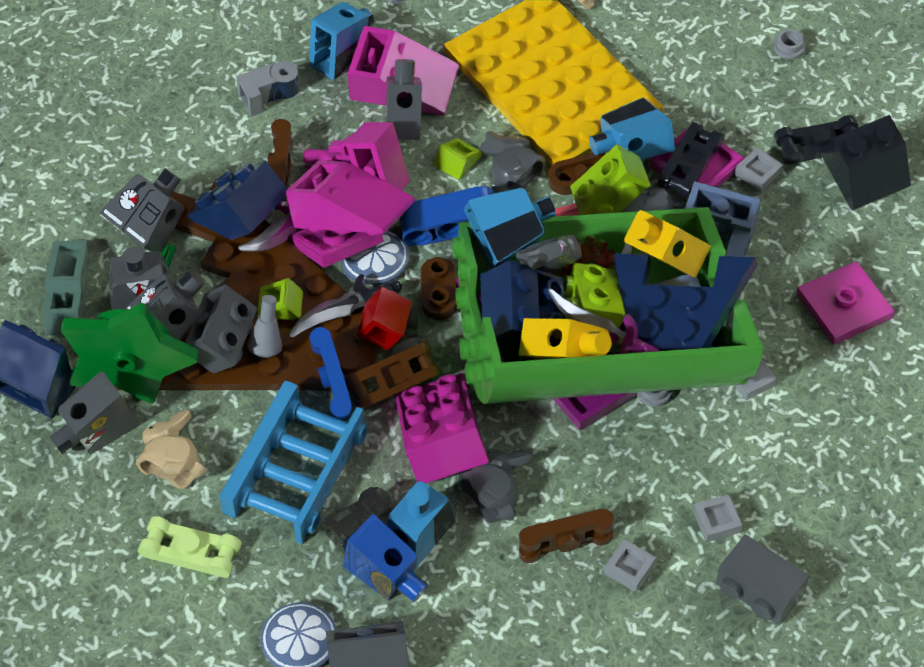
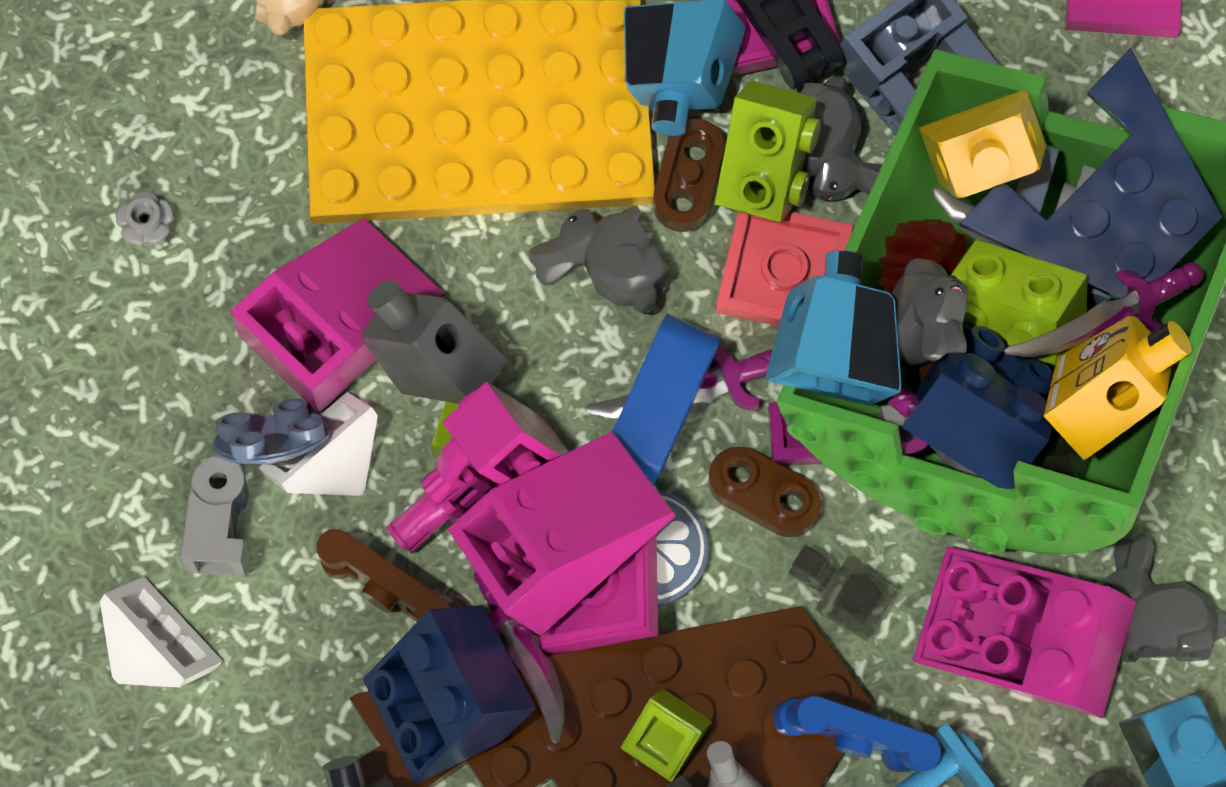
camera: 60 degrees left, 15 degrees up
(197, 94) = (151, 640): none -> white slope
(315, 77) = (270, 437): none -> sand blue dish
(330, 113) = (337, 464): none -> white slope
(336, 37) = (204, 350): dark azure torso -> none
(341, 307) = (730, 646): flat silver piece -> none
(384, 318) = (802, 600): red brick -> none
(393, 374) = (899, 644): reddish brown plate -> none
(456, 157) = (537, 325): lime slope -> none

